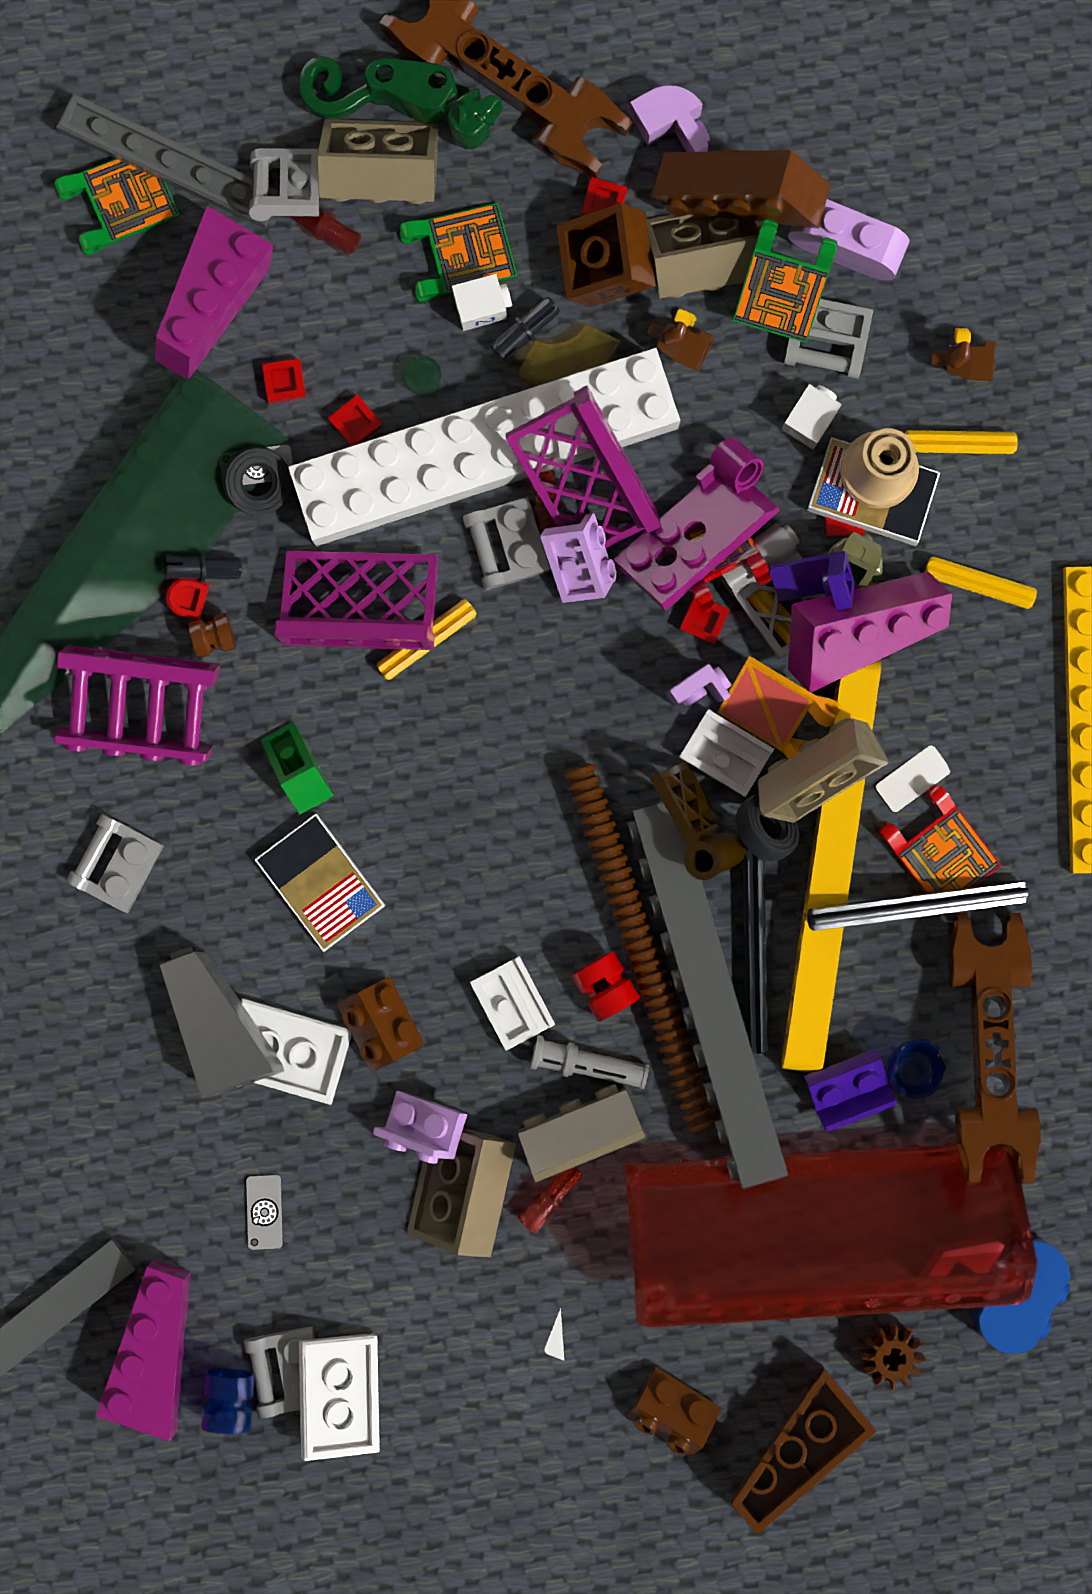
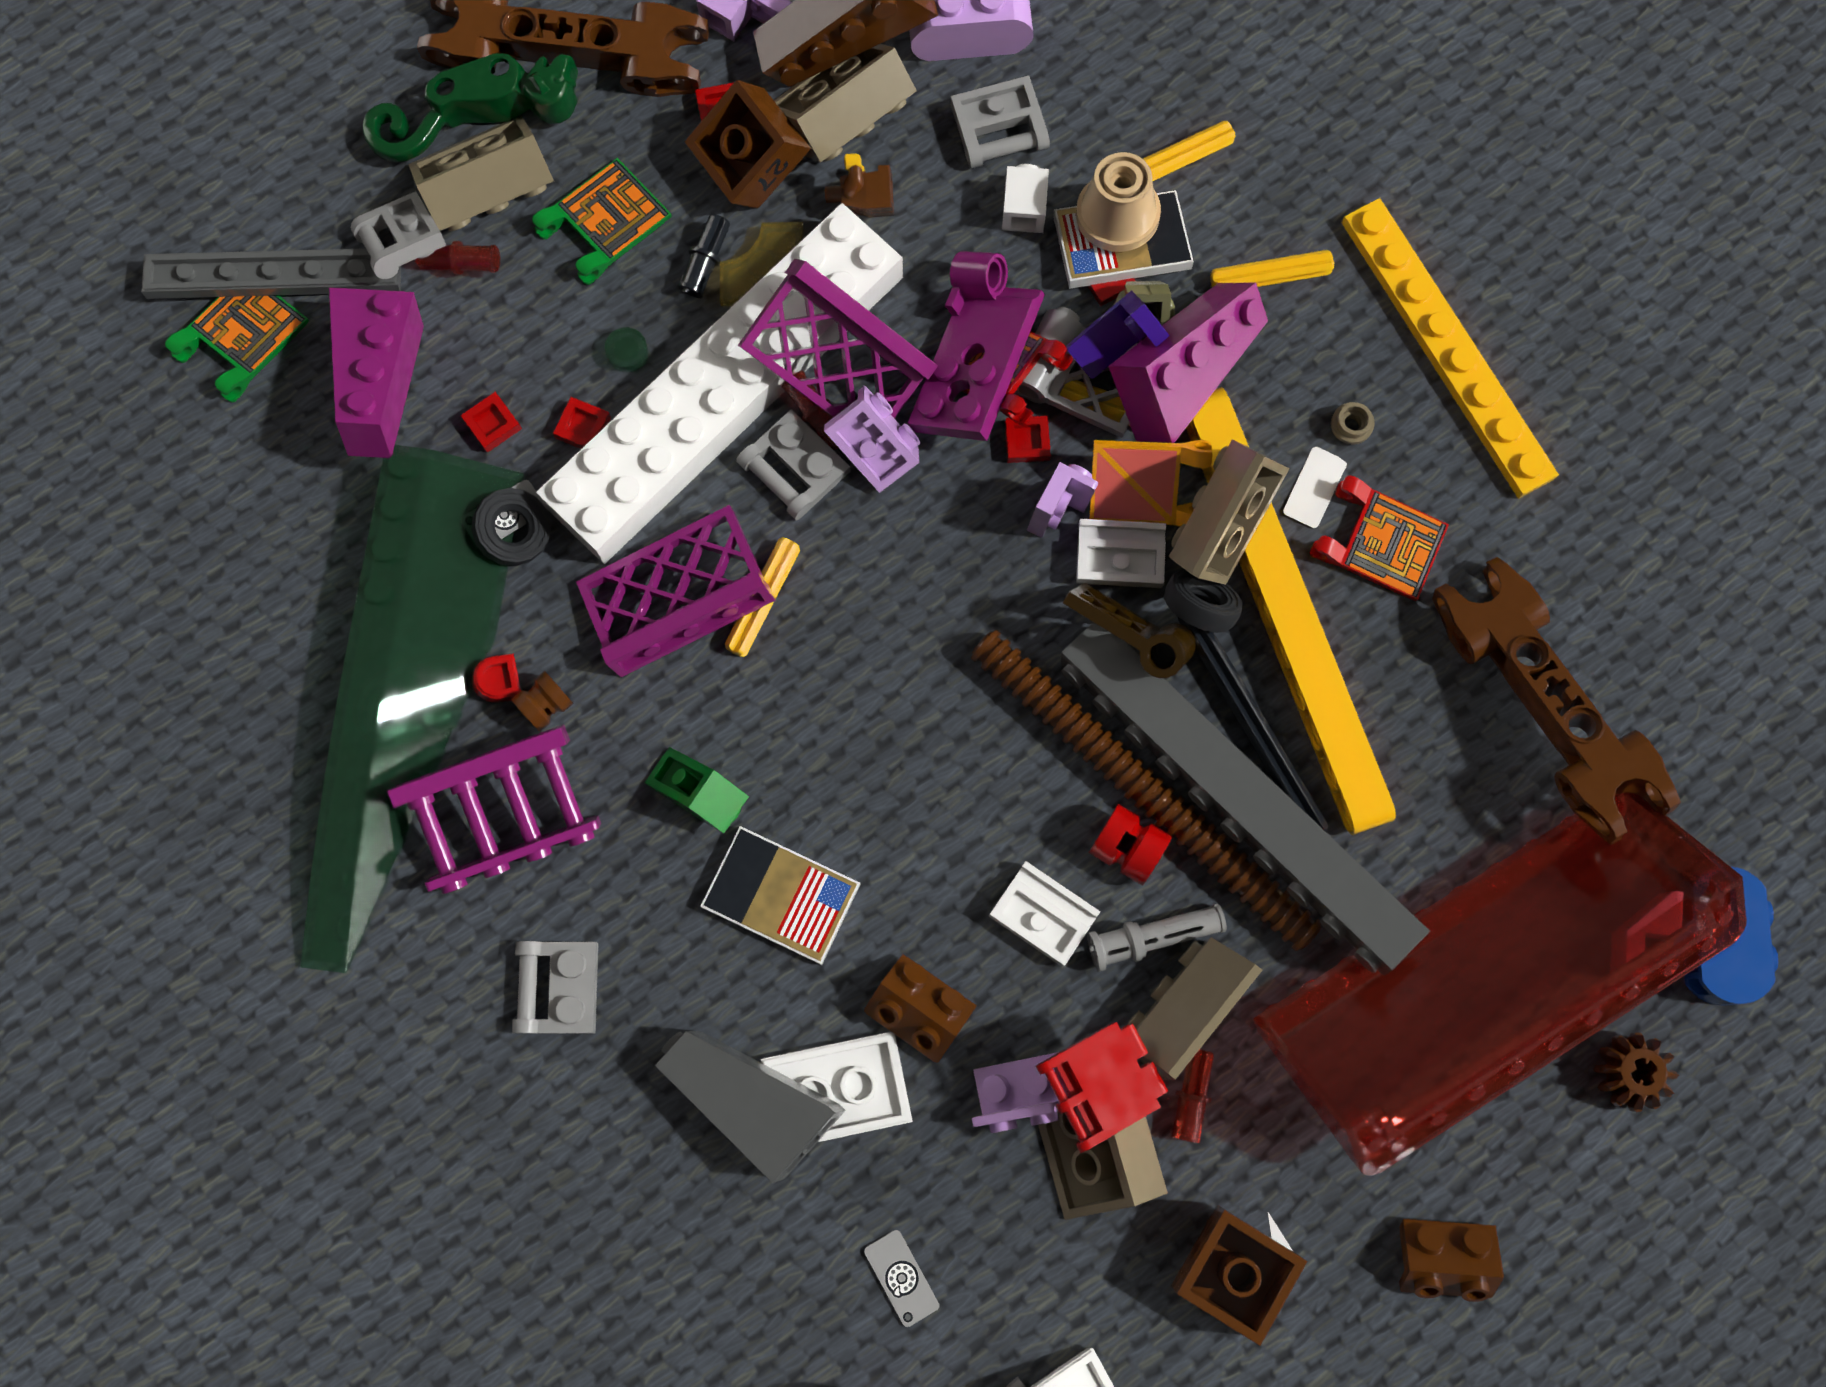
camera: 30 degrees left, 10 degrees down
(202, 567) = (497, 639): black axle -> none
(481, 301) = (648, 251): white brick -> none
(481, 1157) = (1104, 1083): none -> red plate
(510, 1342) = (1238, 1275): none -> reddish brown brick
(781, 289) = (935, 91): flag -> none
(805, 1449) = (1608, 1224): reddish brown wedge -> none
(850, 1090) = (1434, 820): dark purple bracket -> none
(916, 1068) = (1486, 762): clear blue hair -> none
(917, 905) = (1392, 600): axle -> none
(966, 359) = (1142, 75): reddish brown piece -> none
(984, 743) = (1360, 414): none -> dark tan plate

